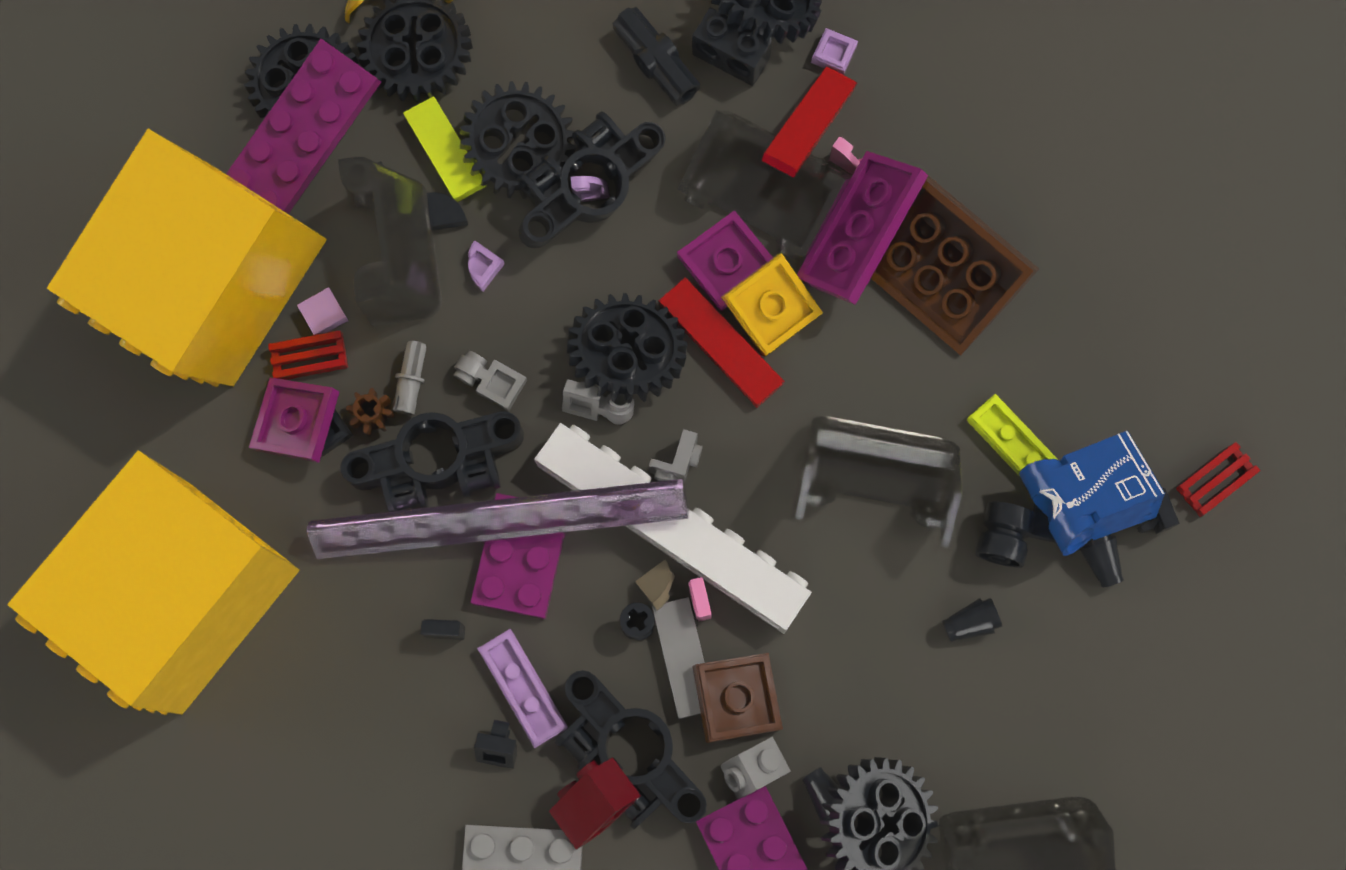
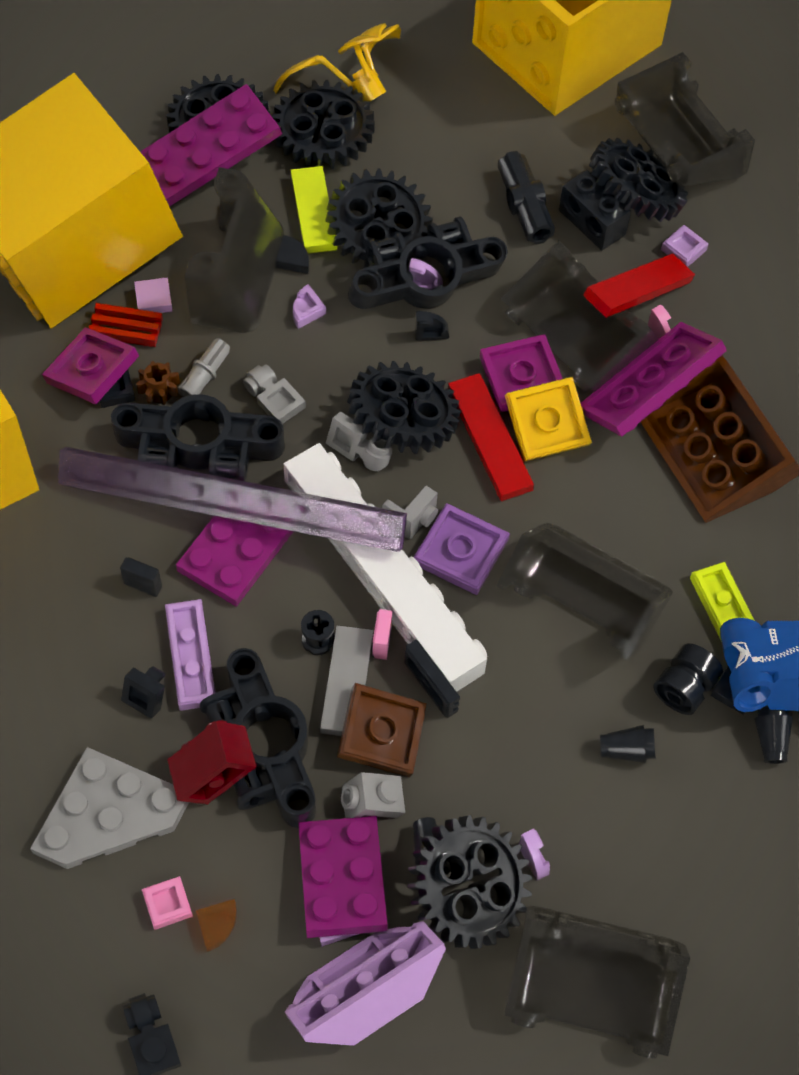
camera: 15 degrees right, 15 degrees down
(617, 243) = (430, 326): none -> black tile
(657, 584) = (348, 608): dark tan tile -> none
(738, 475) = (461, 548): none -> medium lavender tile
(764, 627) = (431, 679): none -> black tile
(923, 763) = (530, 848): none -> lavender tile

